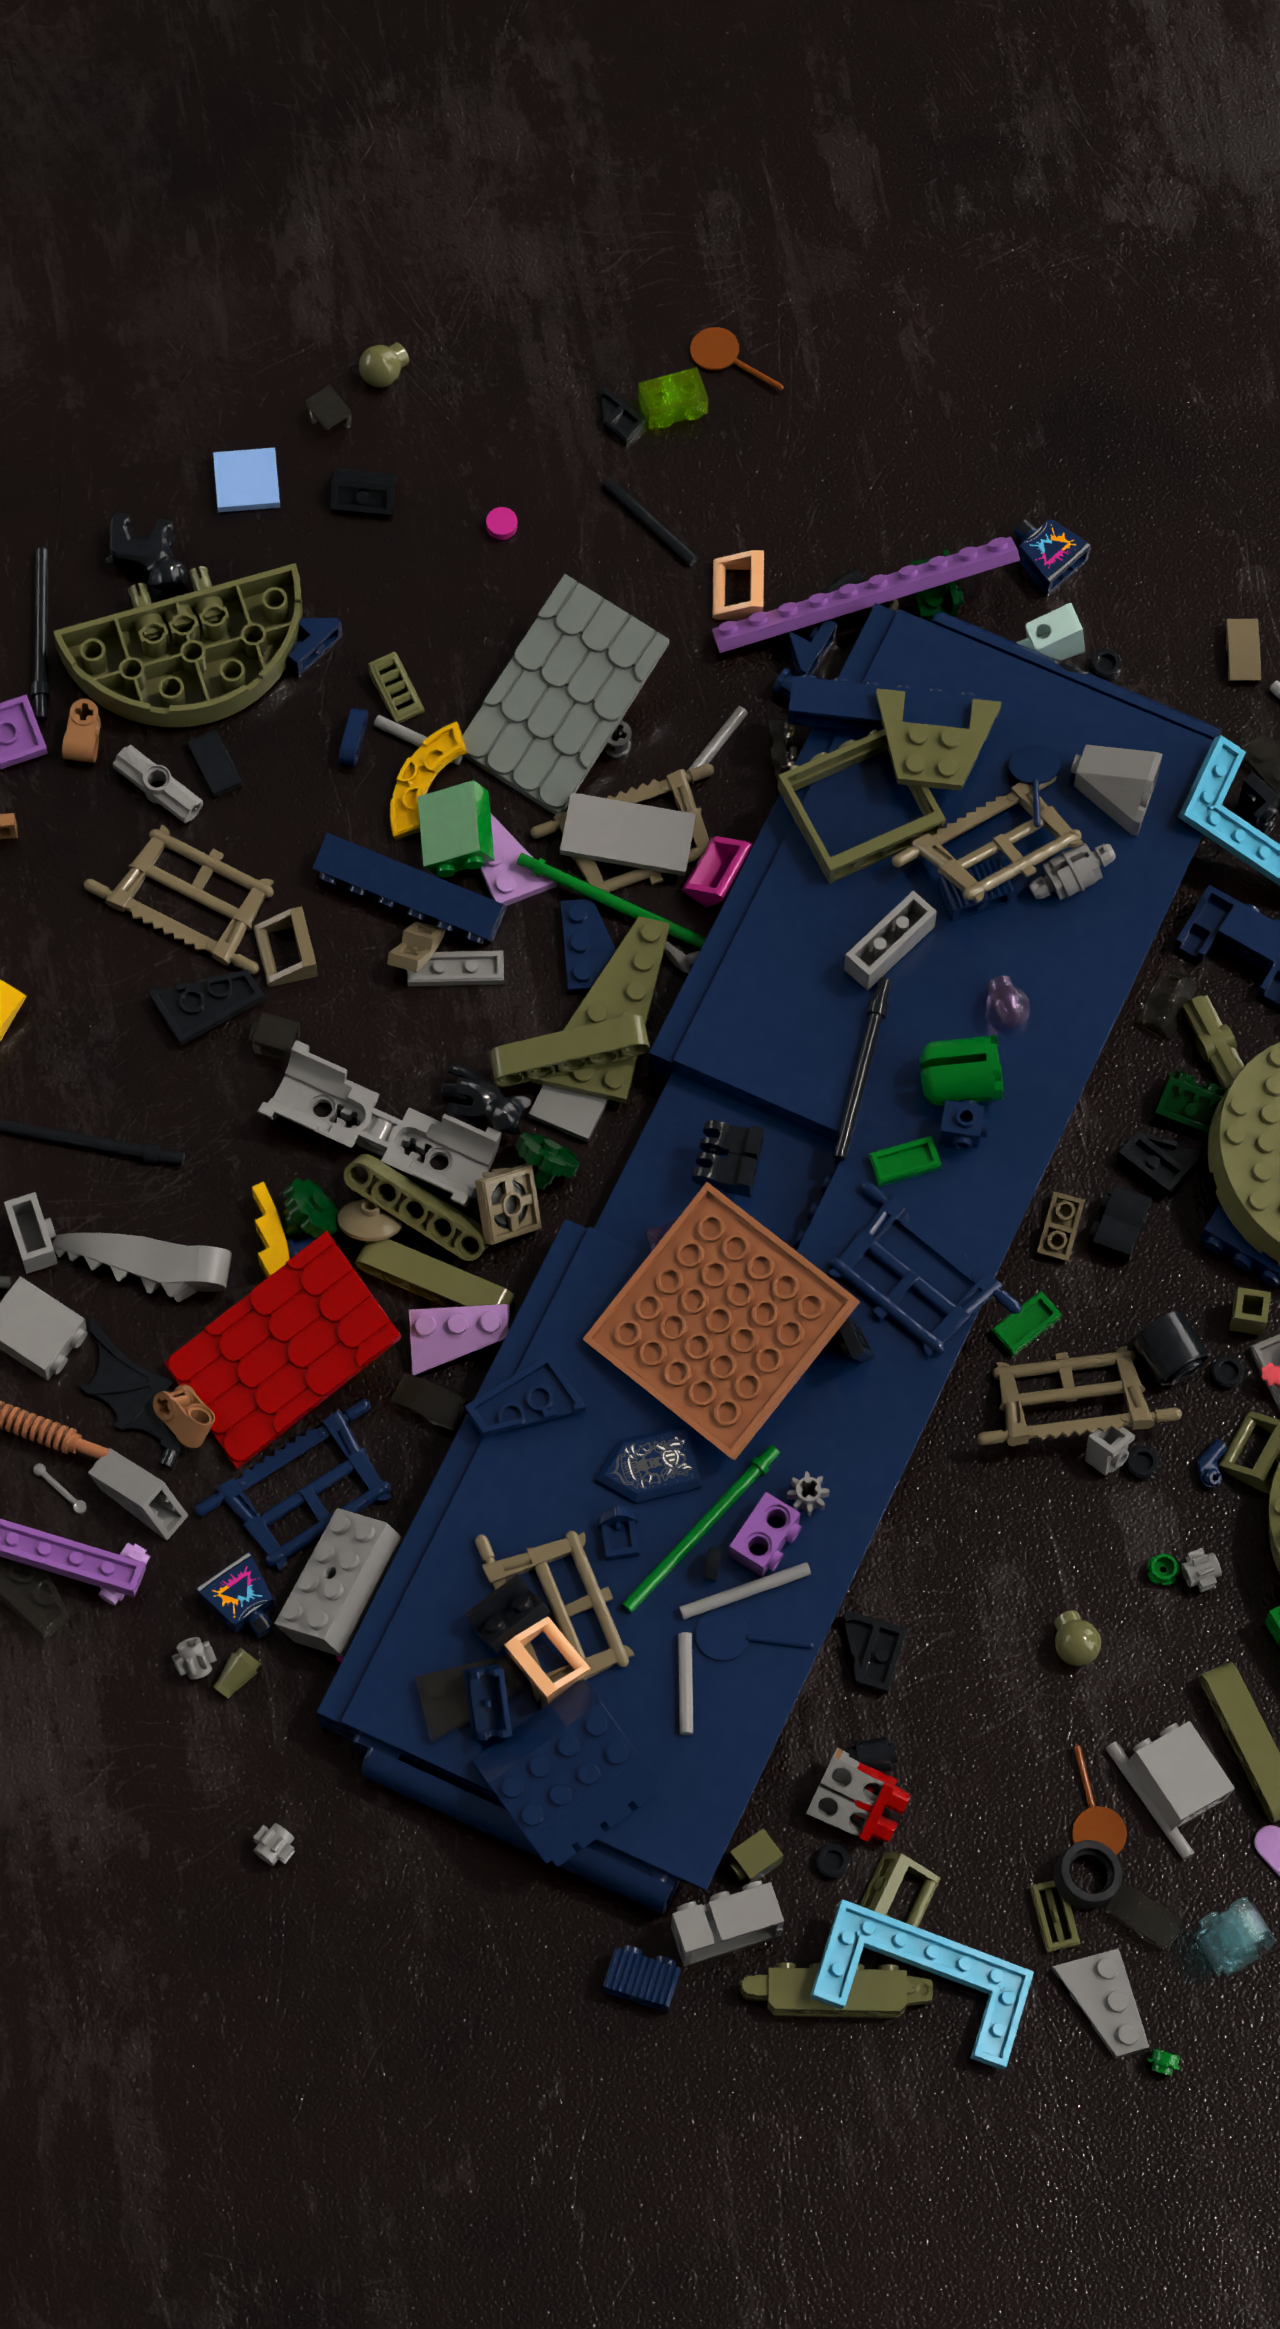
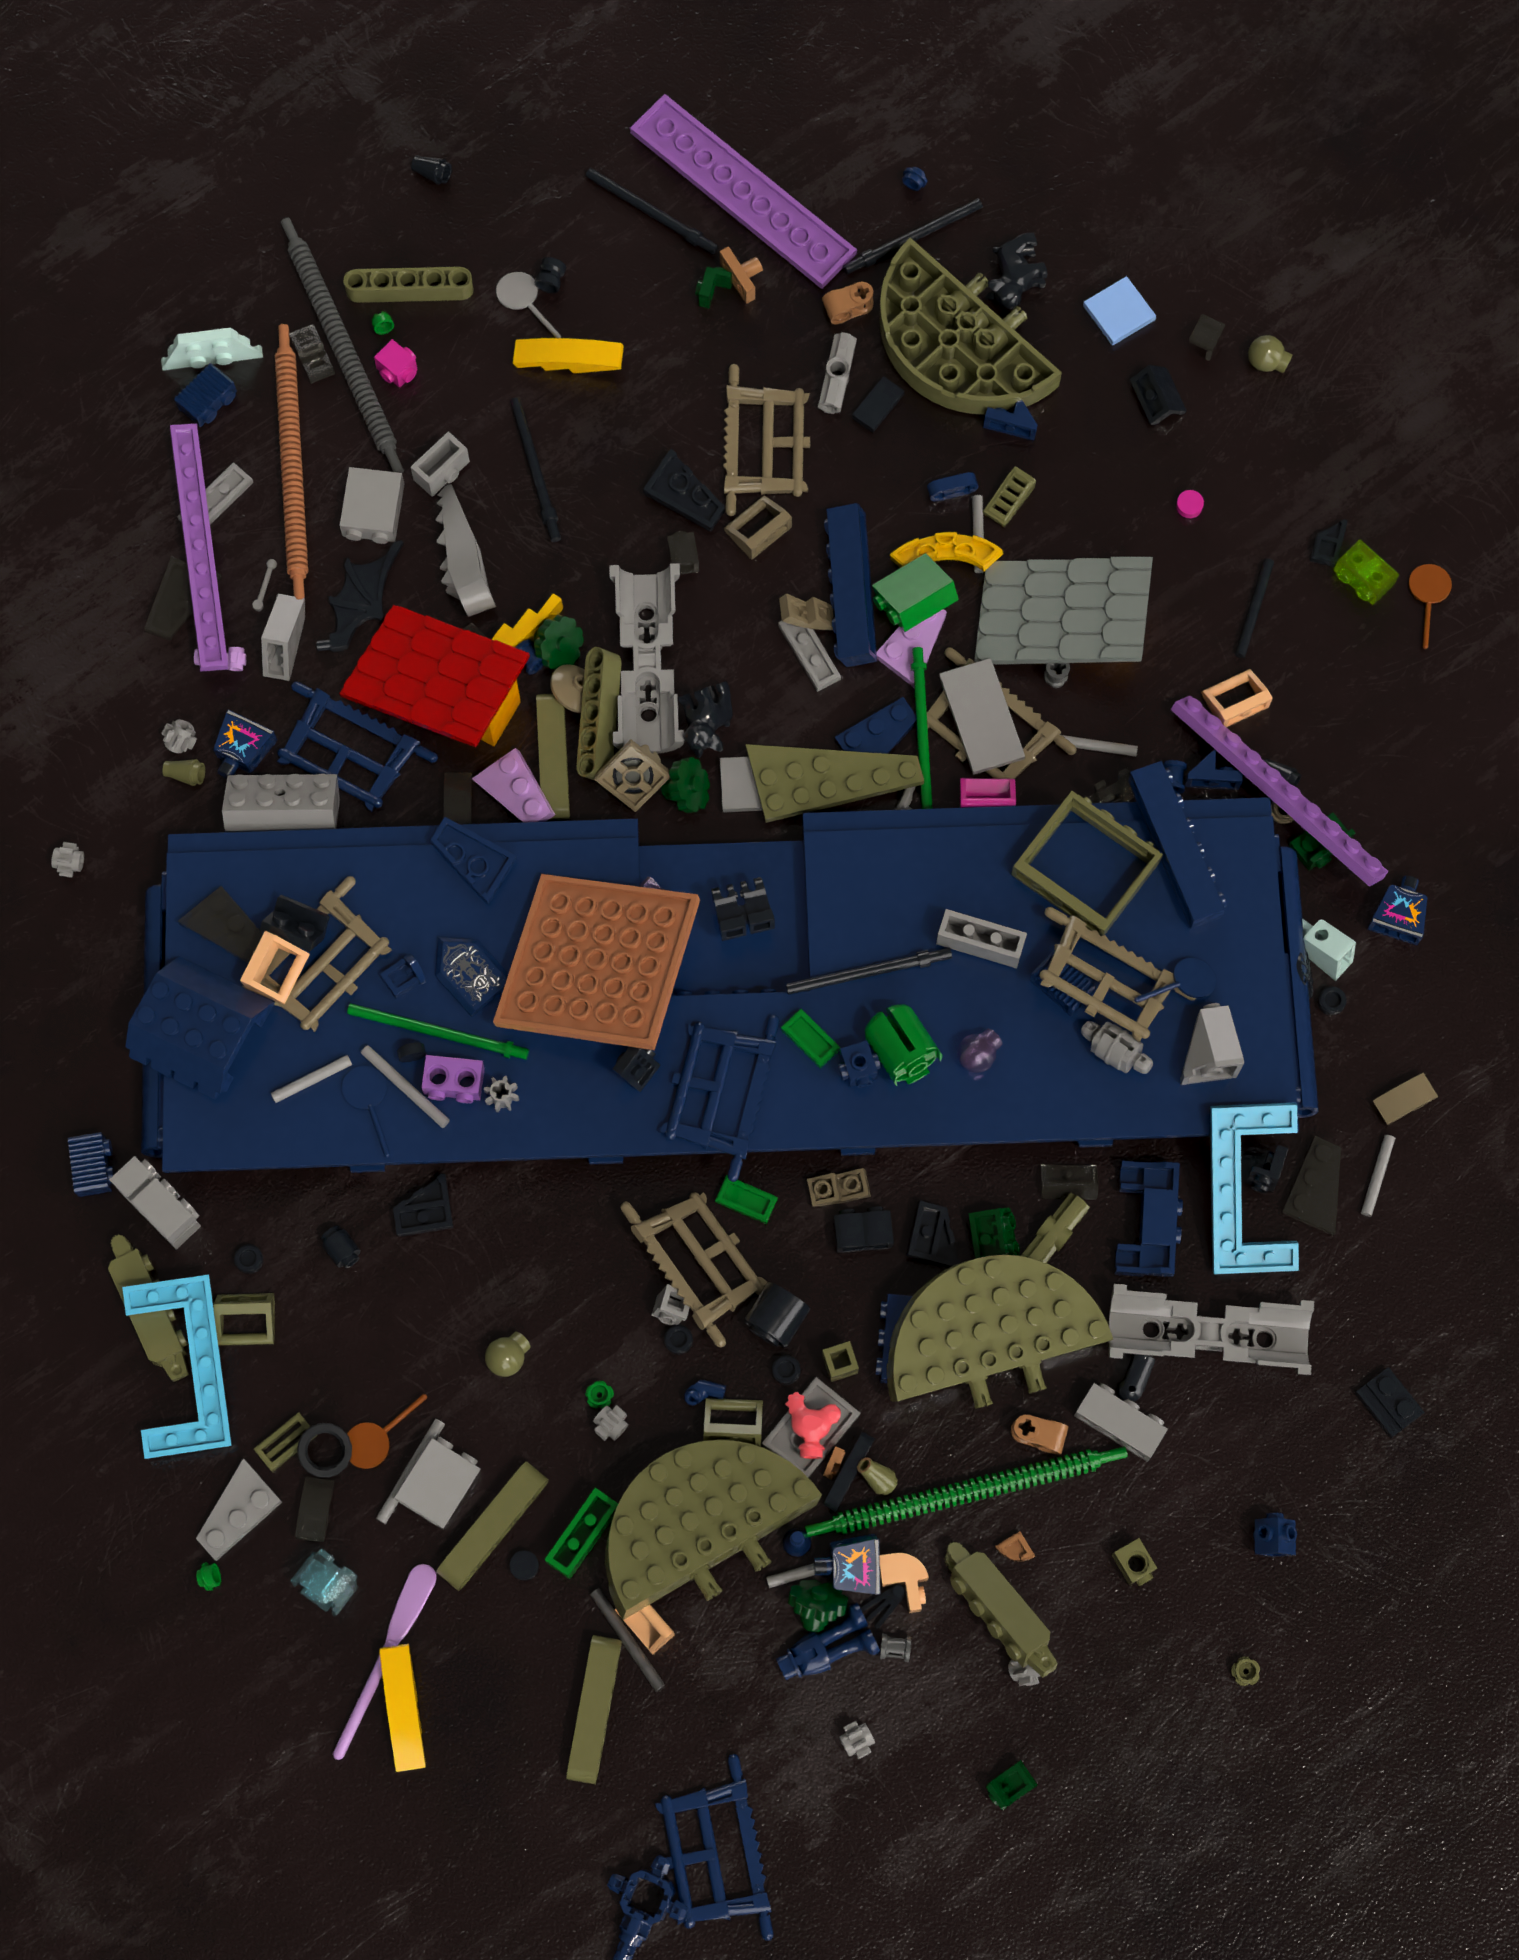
camera: 65 degrees right, 5 degrees up
(187, 1415) = (359, 633): medium nougat piece -> none
(487, 1702) = (222, 943): dark blue hinge -> none
(569, 1050) = (776, 757): olive beam -> none
(755, 1857) = (221, 1200): olive brick -> none
(855, 1797) = (298, 1251): light grey hips -> none
(933, 753) = (1153, 895): olive wing -> none

